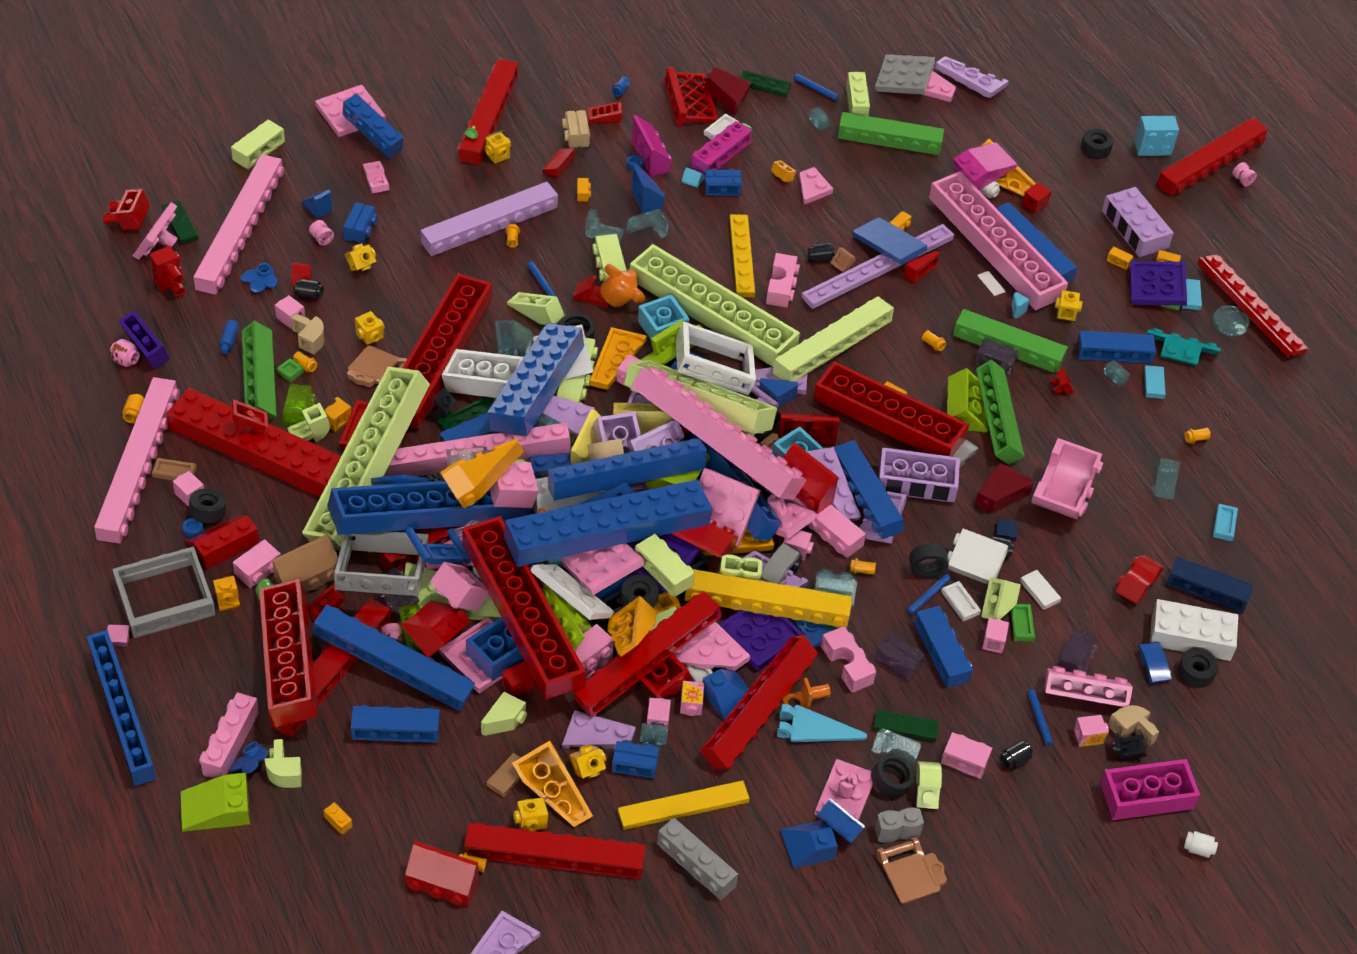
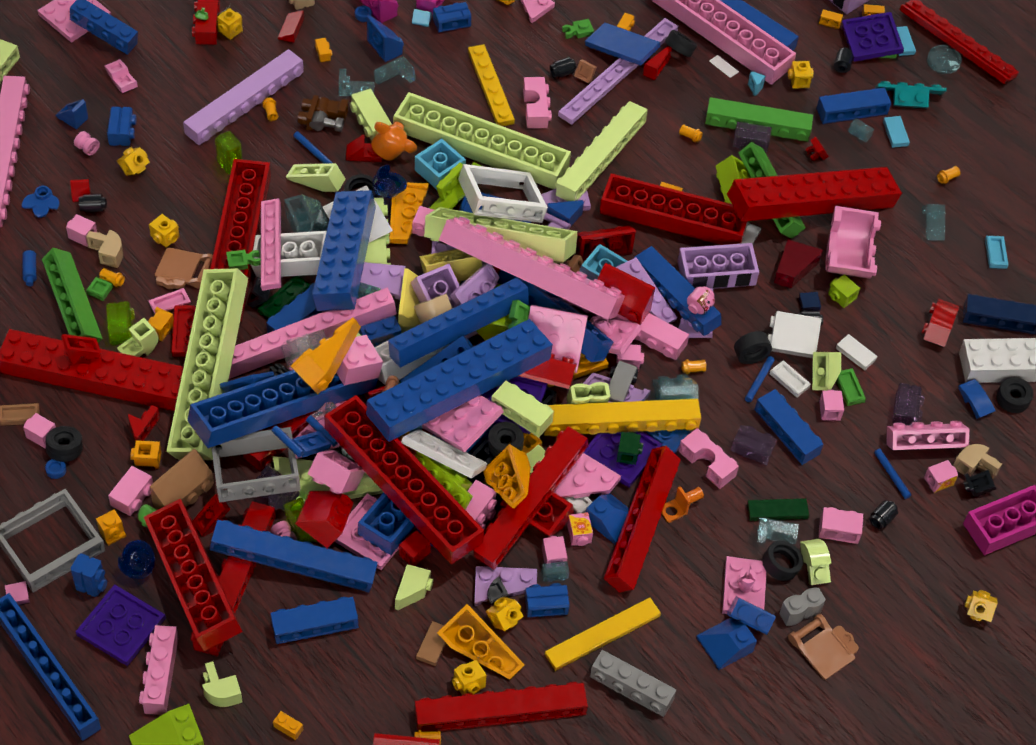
camera: 15 degrees left, 5 degrees up
(189, 631) = (88, 575): none -> blue brick
(205, 686) = (120, 625): none -> dark purple plate
(225, 541) = (91, 474): red slope -> none
(241, 628) = (137, 560): none -> clear blue helmet
(249, 761) = (187, 687): blue plate -> none
(284, 532) = (147, 453): none -> light orange brick
(289, 507) = (142, 427): none -> red slope
(351, 395) = (169, 300): none -> bright pink tile
(431, 367) = (241, 260): none -> bright green plate
(455, 262) = (227, 150): none -> clear neon green brick
(466, 360) = (270, 244): none -> bright pink tile
(564, 249) = (323, 113): none -> reddish brown hips
(586, 737) = (496, 591): none -> black tile
(602, 326) = (388, 183): none -> clear blue helmet
(690, 471) = (518, 313): none -> bright green plate
(766, 630) = (629, 448): none -> dark green brick
(813, 727) = (697, 530): medium azure flag -> none
(851, 218) = (579, 28): none -> bright green plate
(884, 501) = (700, 300): none -> bright pink head
(950, 251) = (681, 43): none -> black tyre
(1040, 422) = (813, 193): none -> red brick
(1045, 526) = (843, 291): none -> lime brick
(1098, 868) = (987, 607): none -> yellow brick
(1119, 301) = (843, 60): none -> black brick

